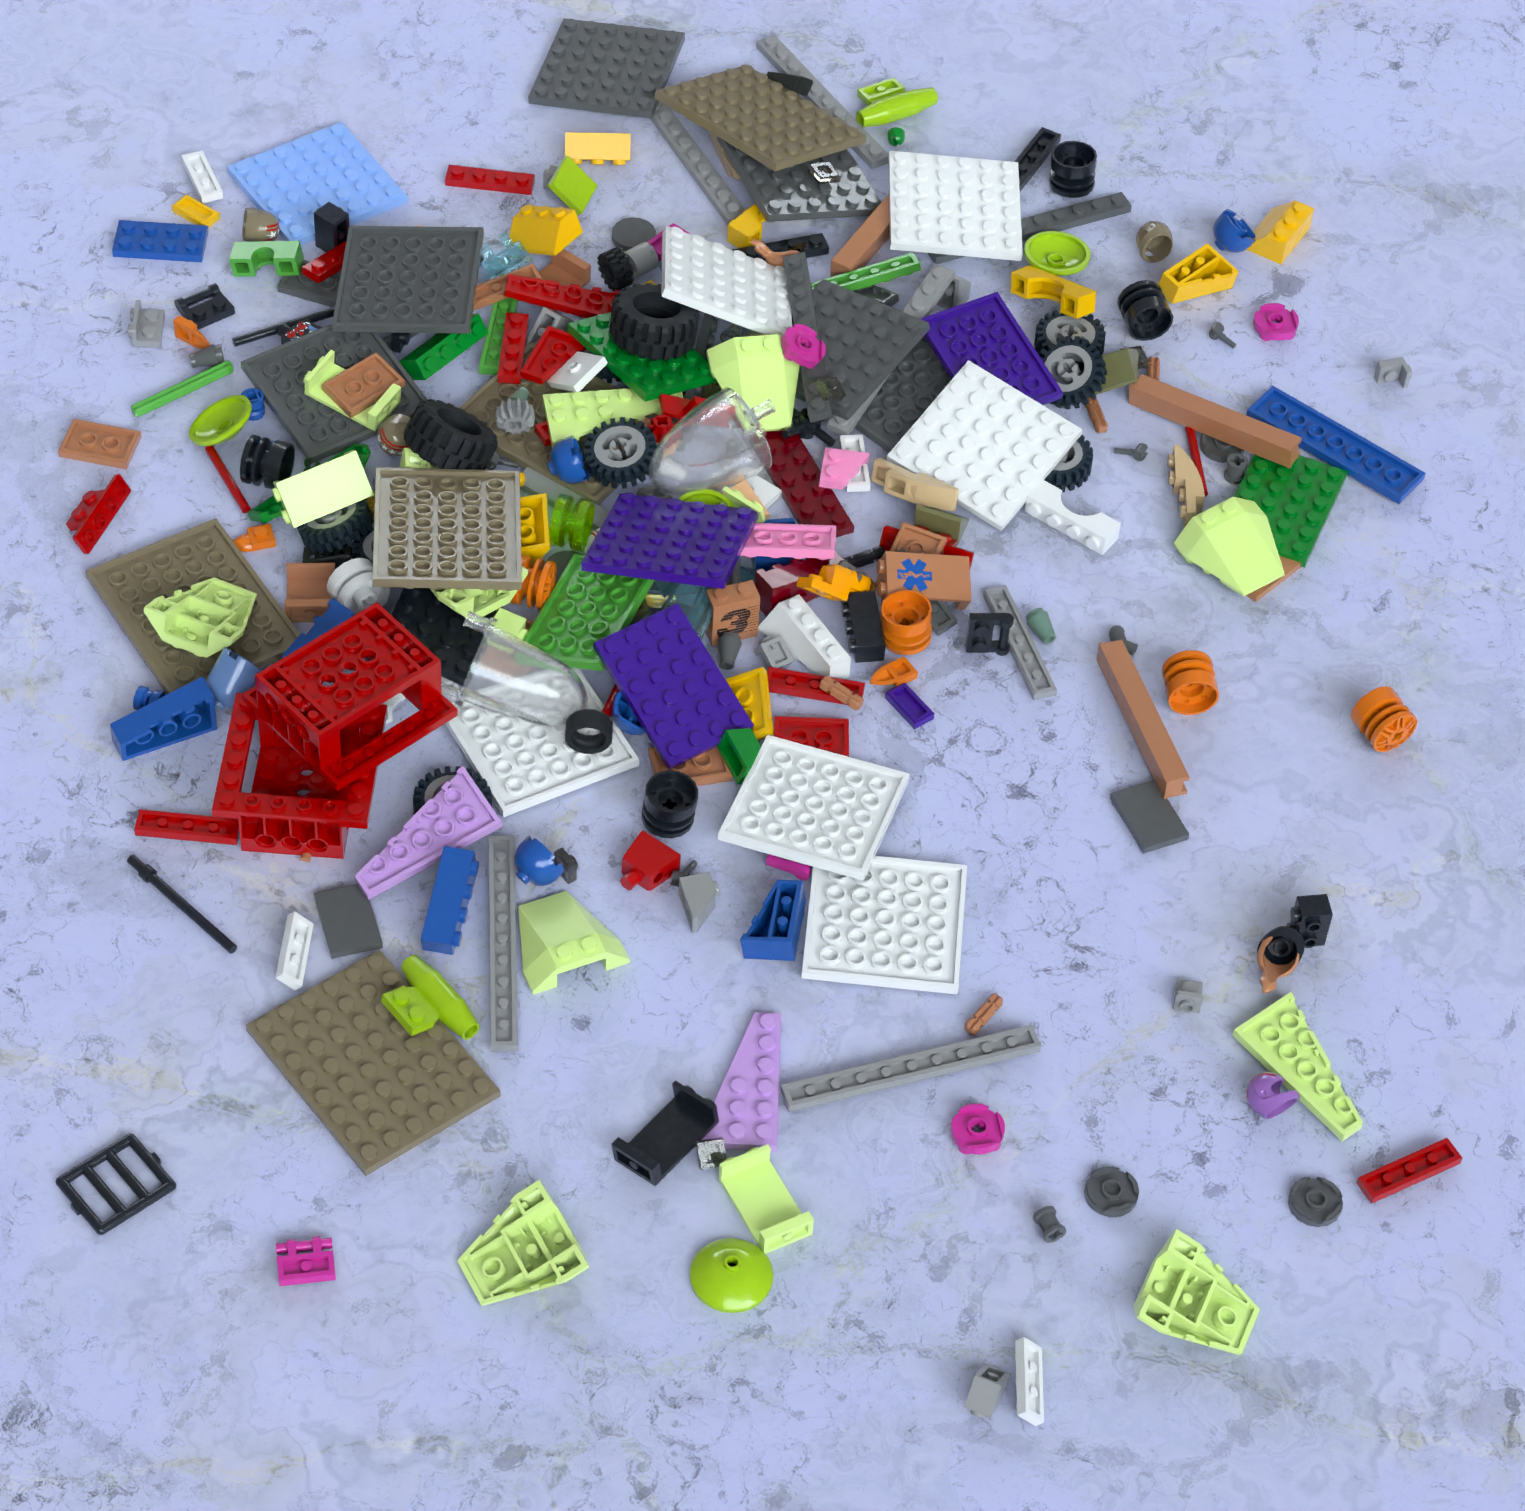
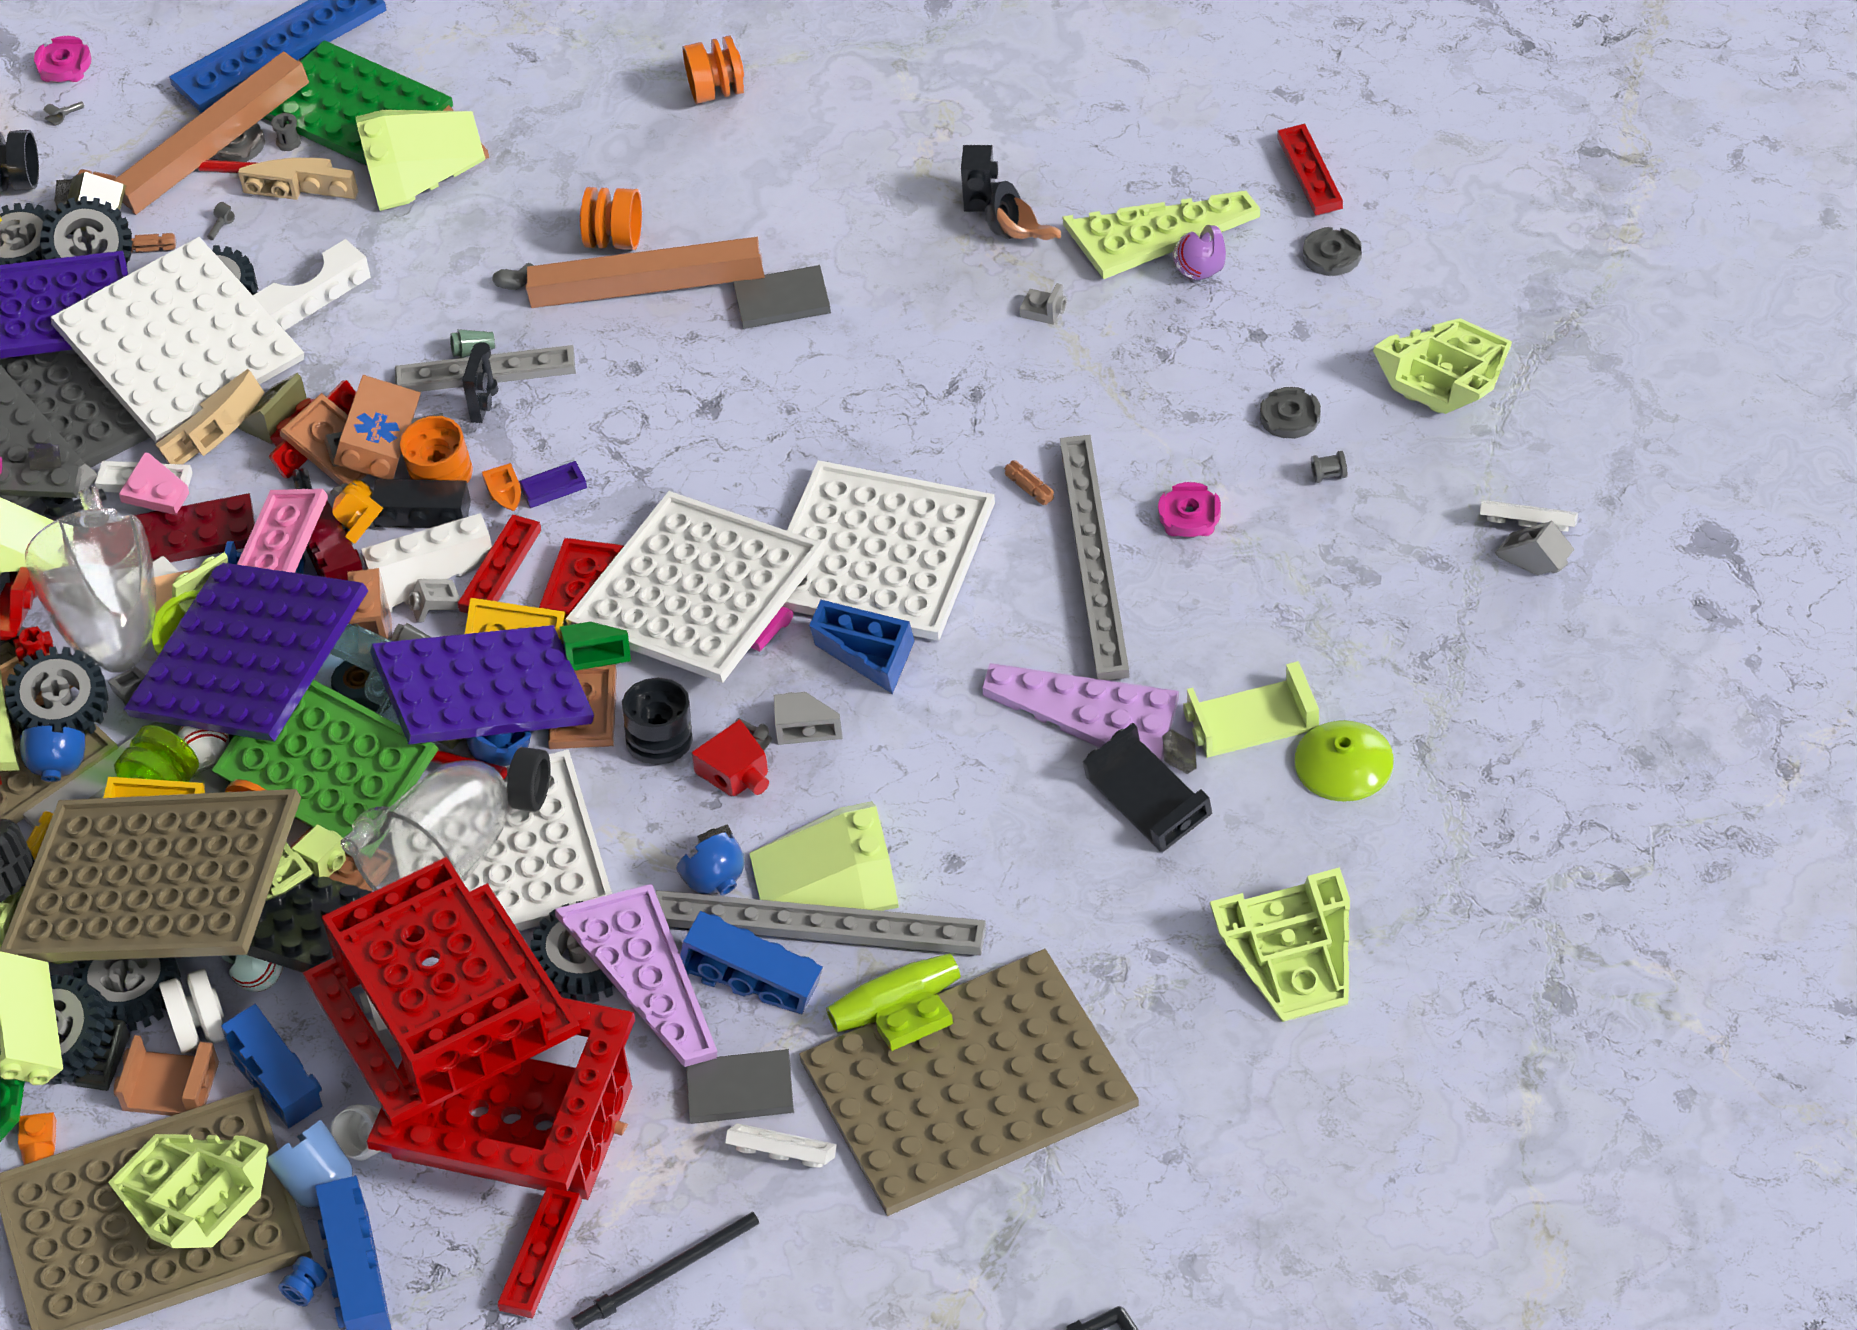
camera: 70 degrees left, 0 degrees up
(305, 1267) = (1273, 1172): dark pink plate -> none
(841, 693) = (527, 534): nougat axle -> none

